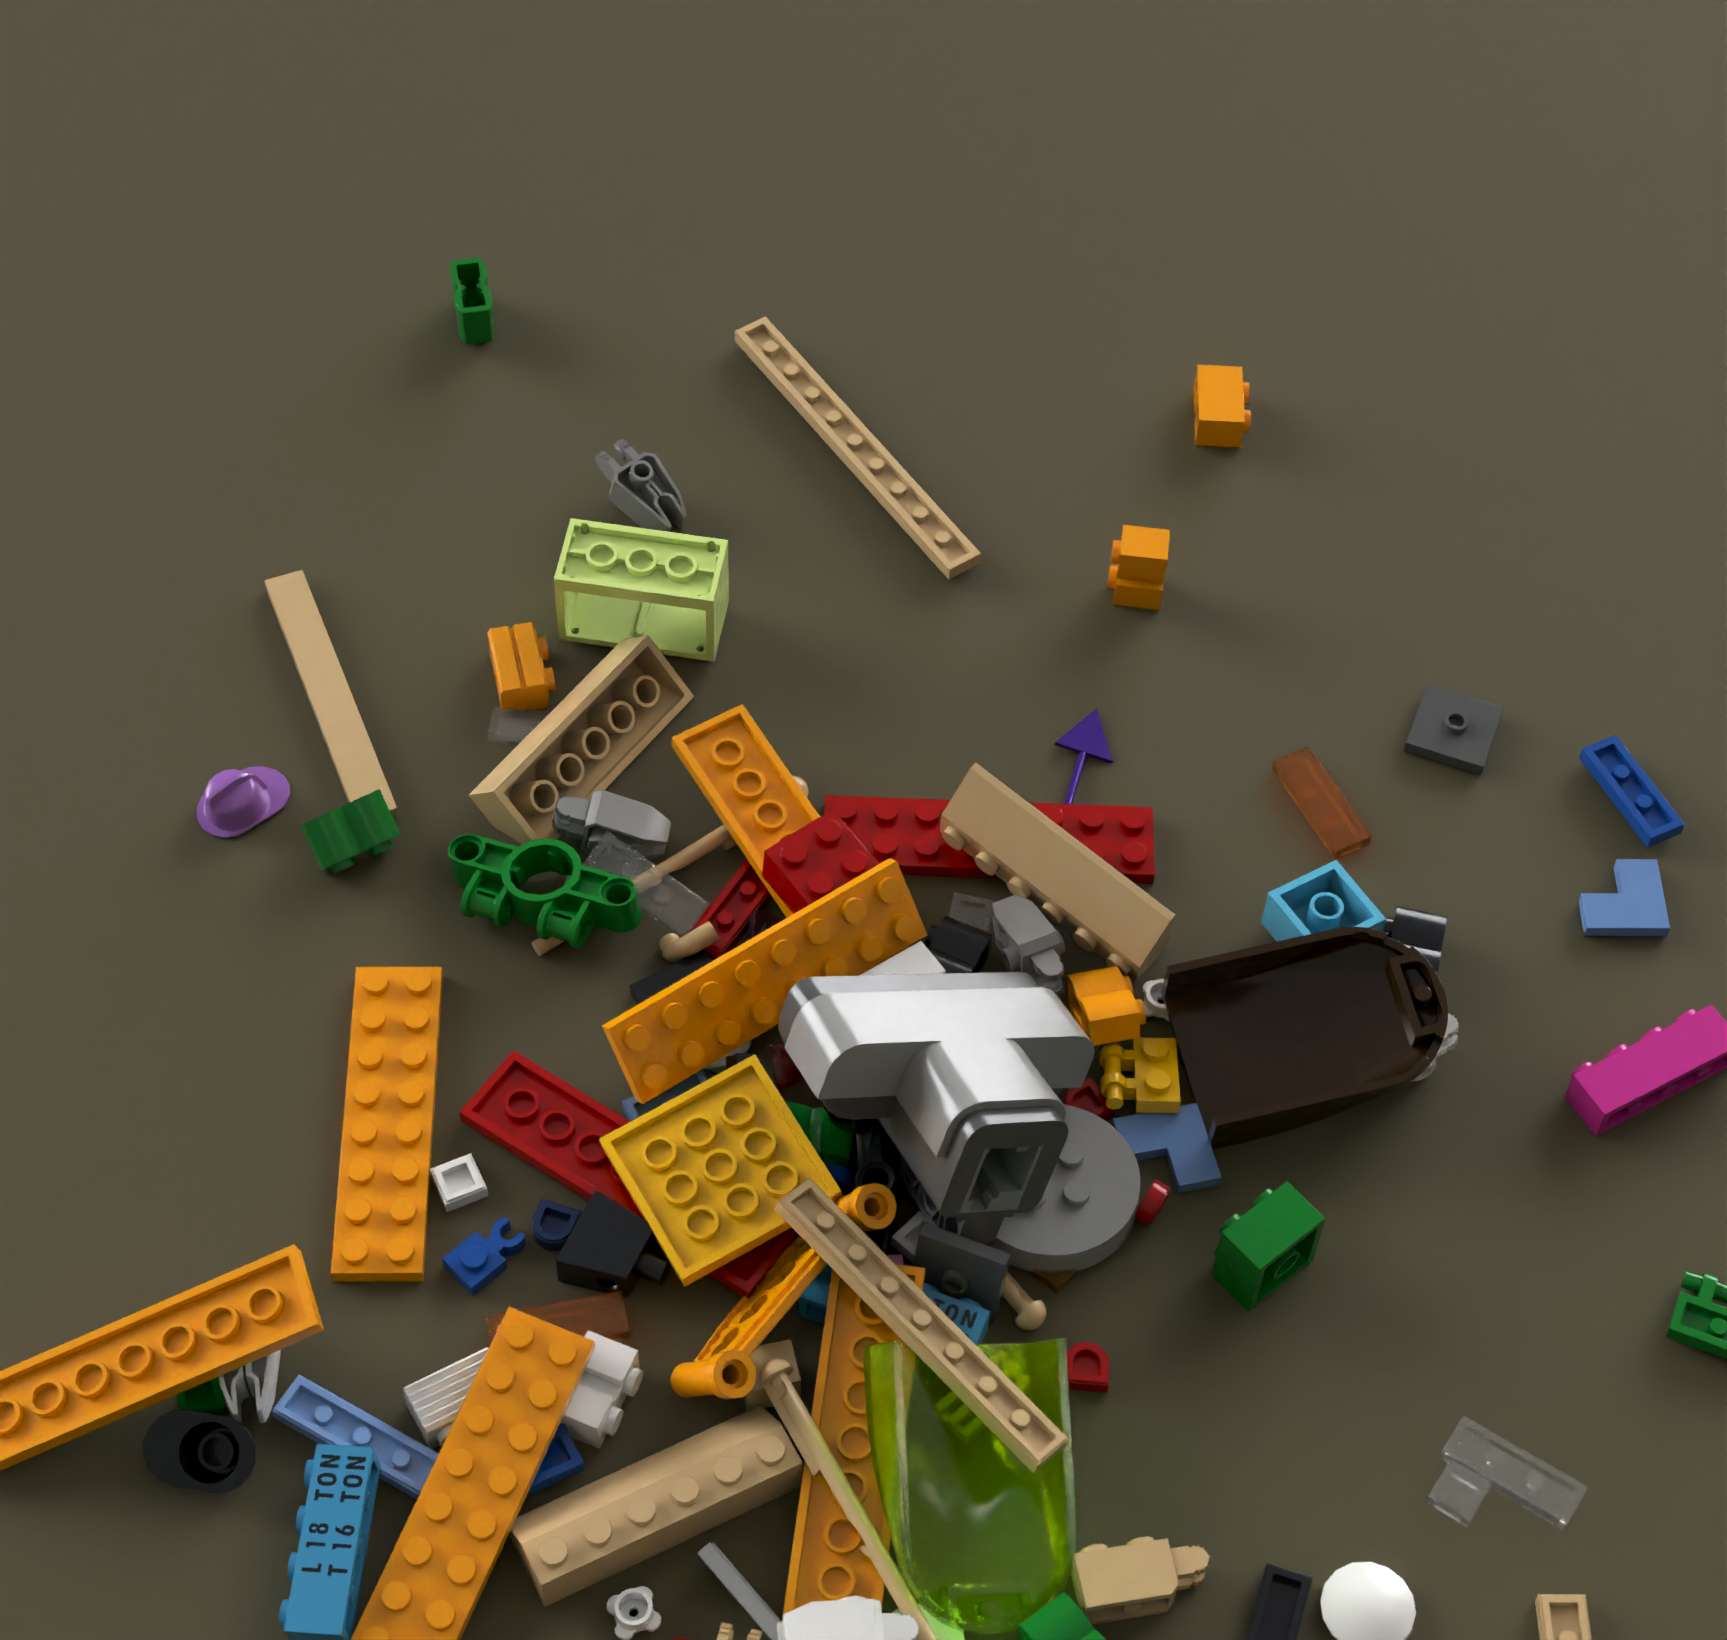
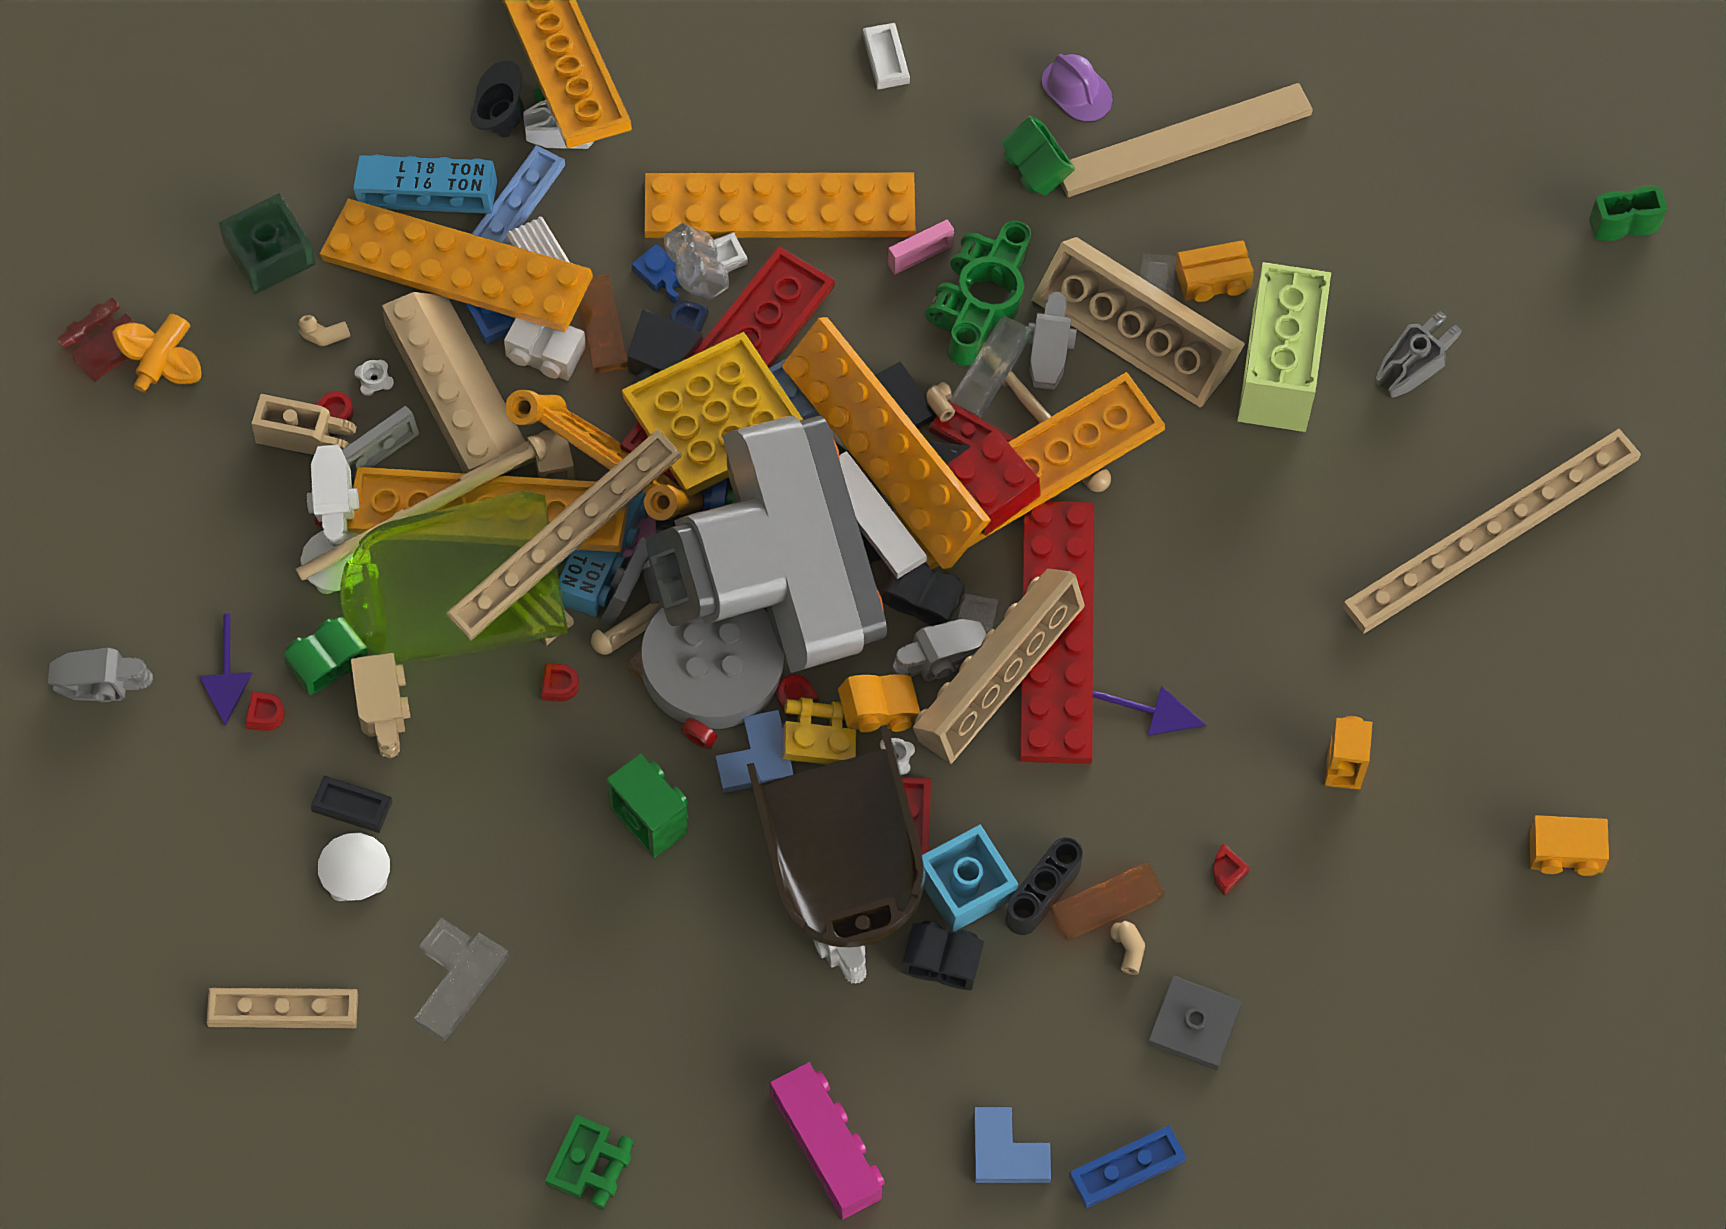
camera: 90 degrees right, 10 degrees up
(171, 999) = (886, 56): none -> white tile
(468, 959) = (920, 247): none -> bright pink tile
(469, 1207) = (696, 261): none -> clear brick
(1271, 694) = (1228, 869): none -> red tile
(1304, 839) = (1048, 870): none -> black beam
(1374, 778) = (1133, 944): none -> tan arm

